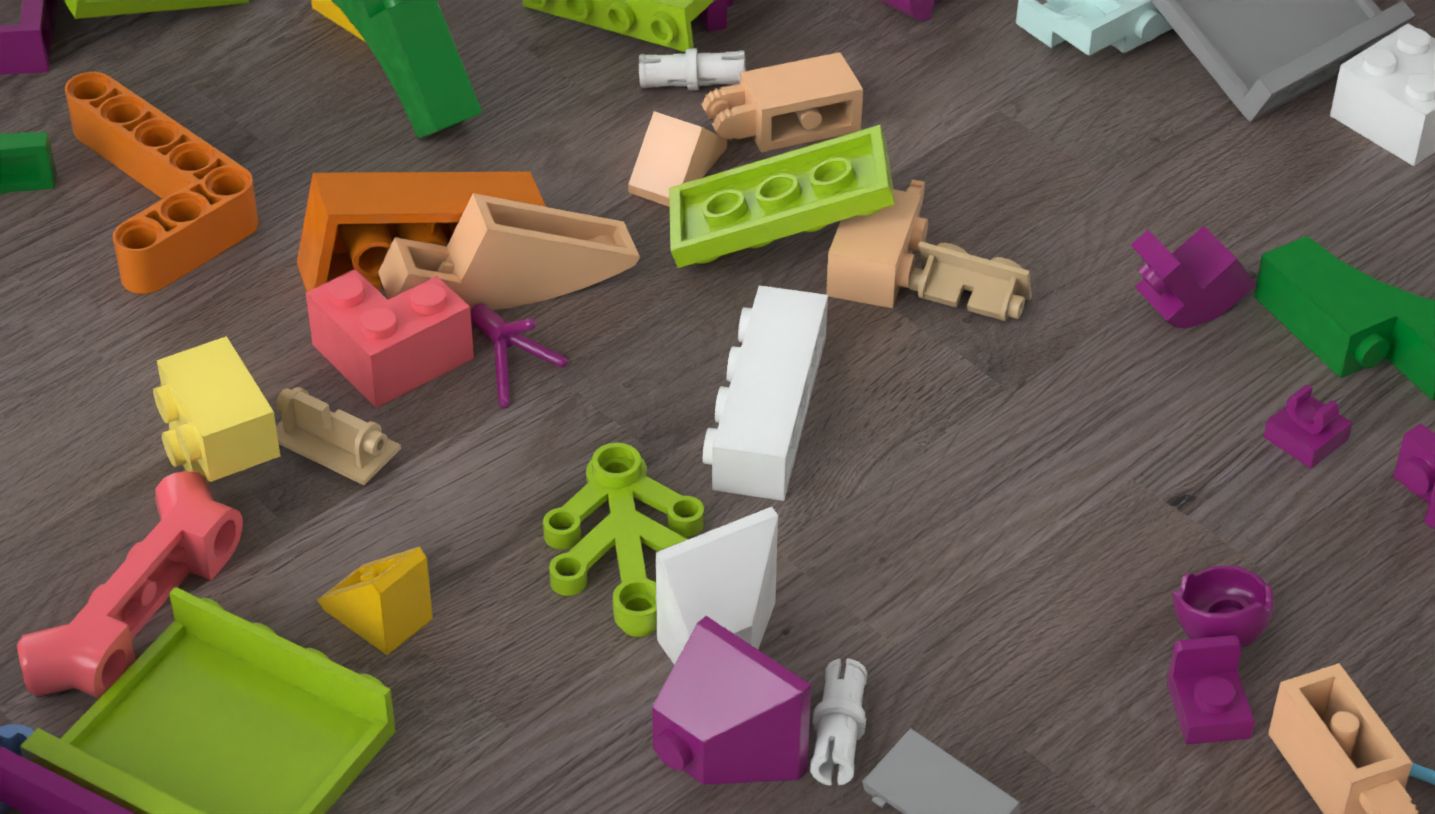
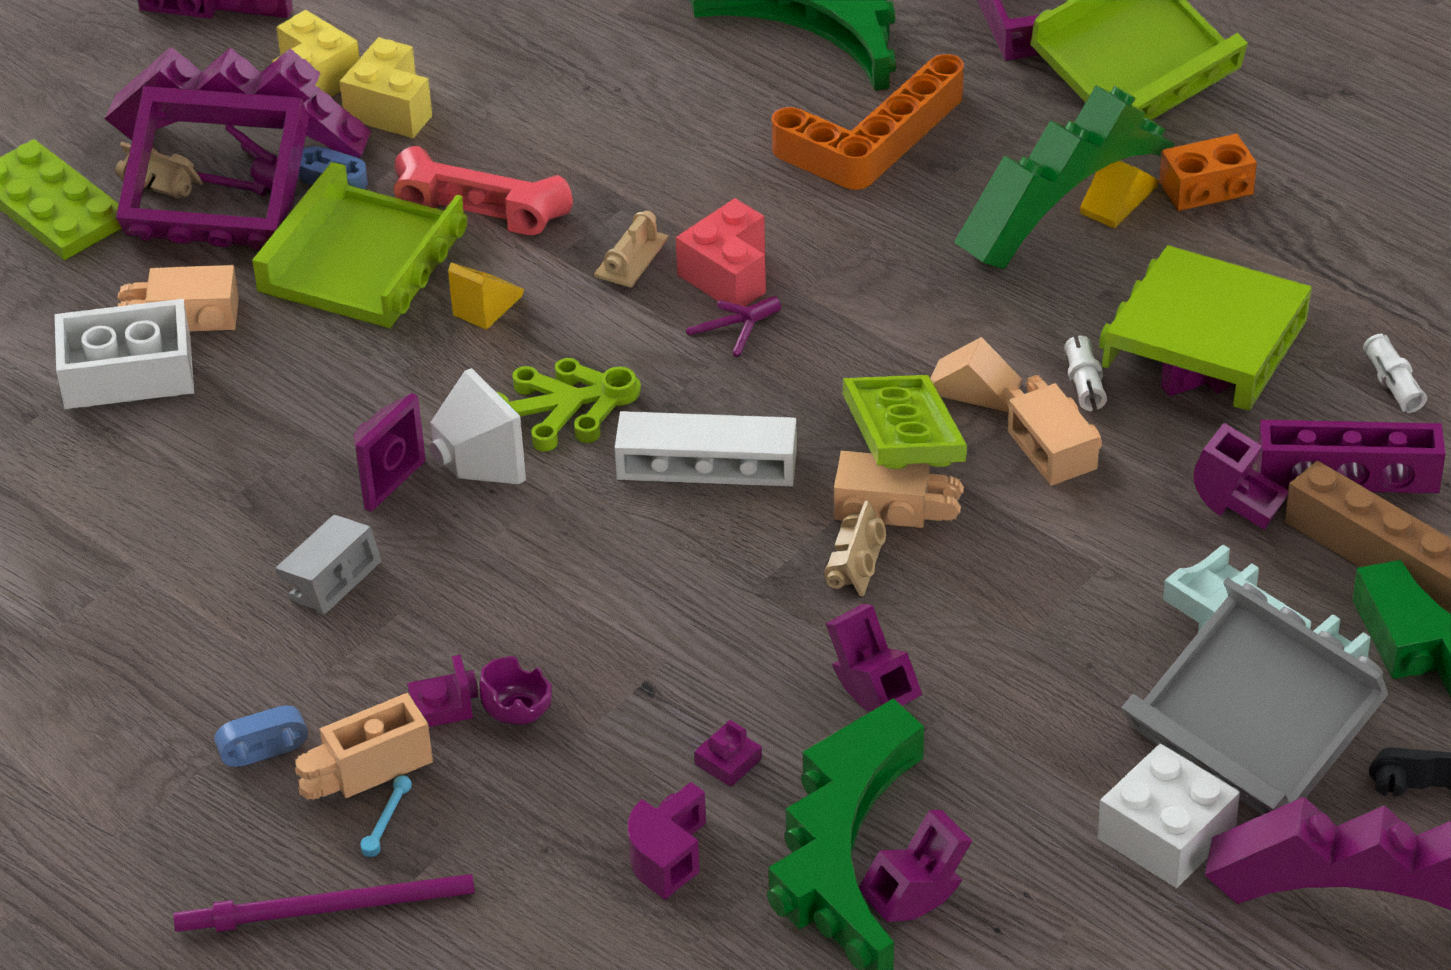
camera: 85 degrees right, 0 degrees up
(214, 412) = (606, 180): light yellow brick -> none
(359, 214) = (838, 246): orange wedge -> none
(513, 254) = (816, 298): light nougat slope -> none
(839, 722) = (400, 512): white pin -> none

